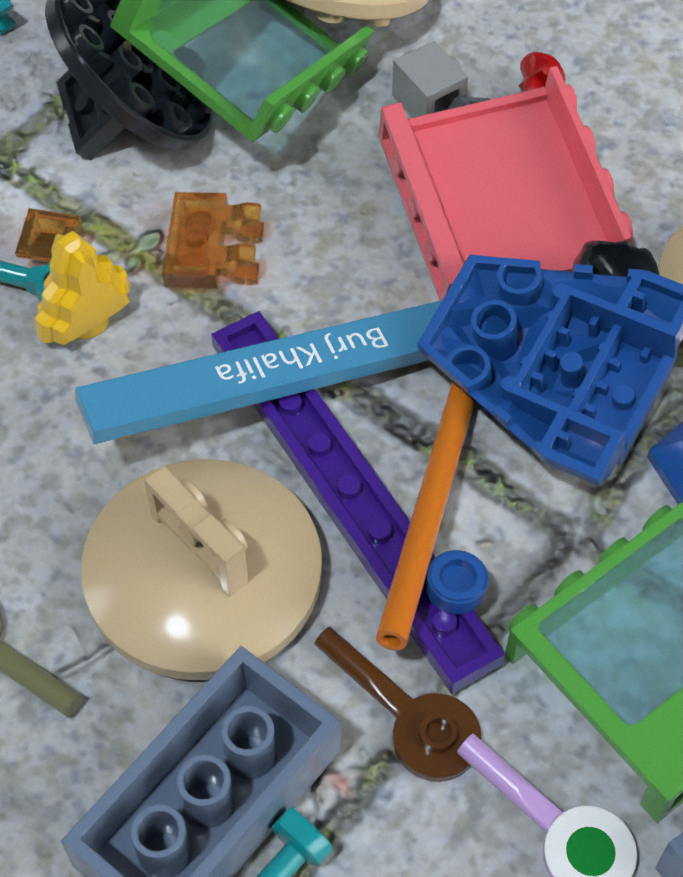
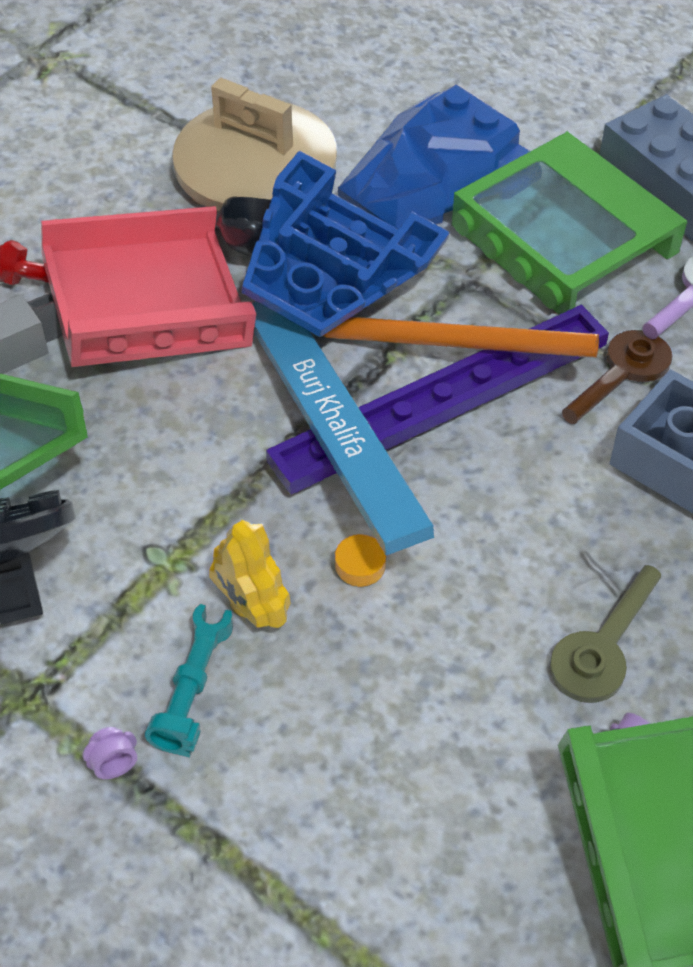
camera: 90 degrees left, 5 degrees down
(40, 231) = (162, 622): clear orange slope -> none
(197, 236) = (173, 503): clear orange plate -> none
(199, 566) = (520, 490): tan bracket -> none
(456, 582) = (531, 316): blue tile -> none

